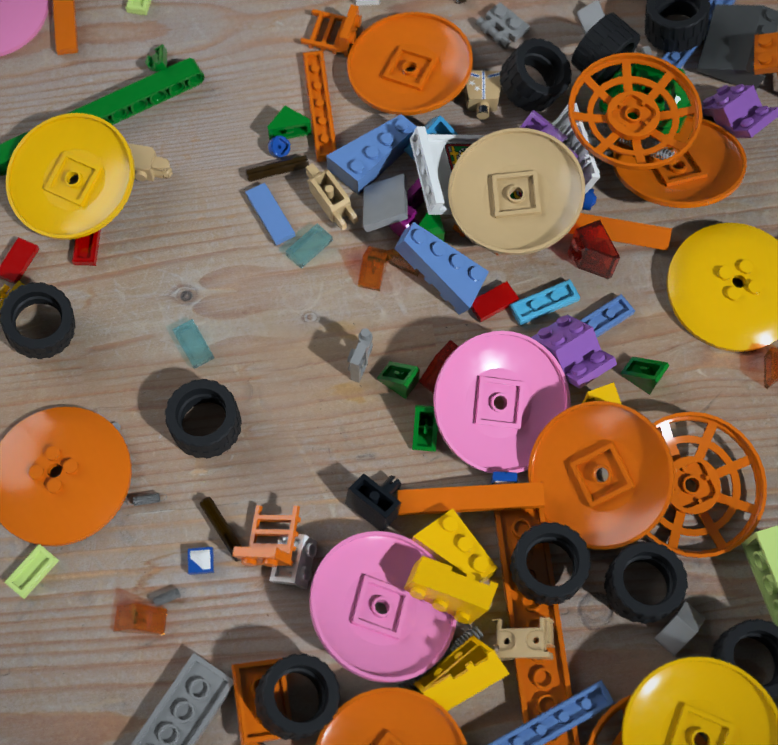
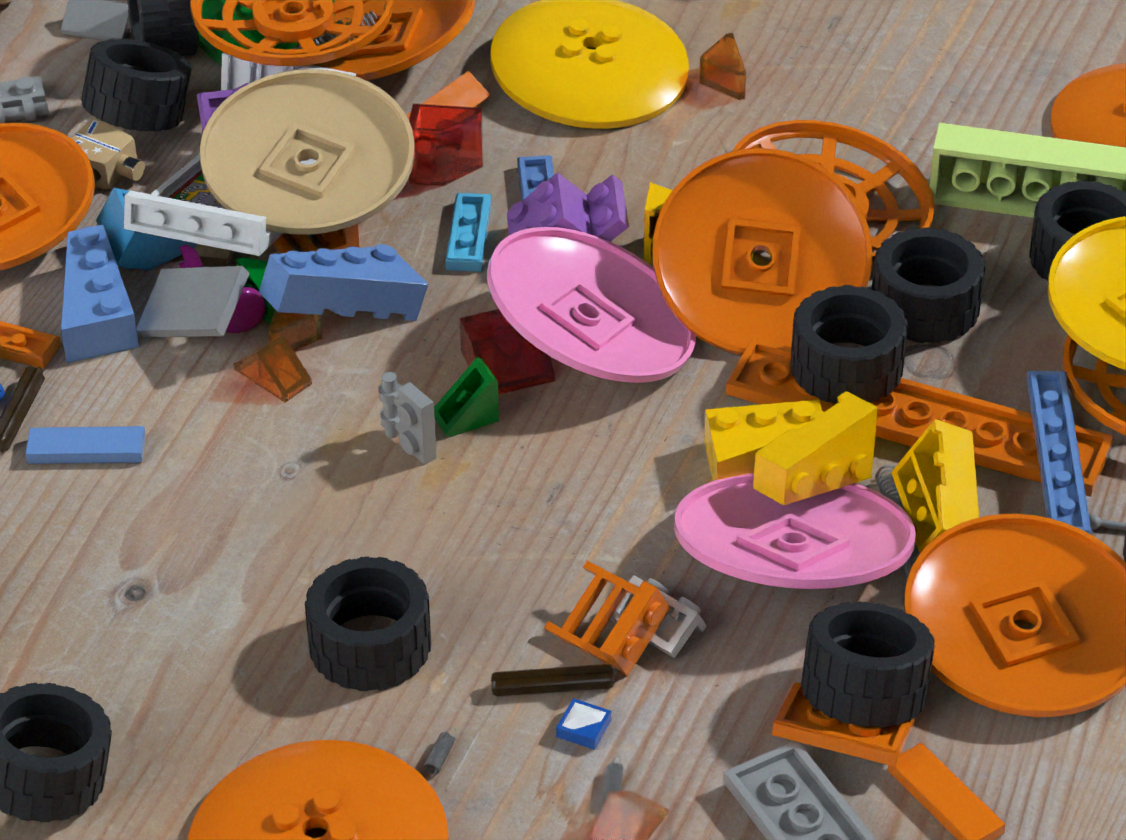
camera: 60 degrees left, 25 degrees down
(193, 344) = (226, 608): clear light blue tile -> none
(309, 245) = (177, 423): clear light blue tile -> none
(330, 196) = (124, 360): tan hinge -> none
(374, 501) = (635, 492): black brick -> none
(424, 429) = (561, 404): green slope -> none
(471, 498) = (703, 391): orange tile -> none
(494, 301) = (431, 266): red tile -> none
(503, 478) = (695, 361): blue tile -> none
(523, 640) = (934, 403): tan piece -> none
(644, 372) = (652, 165): green slope -> none
(680, 628) = (1007, 294): light grey slope -> none

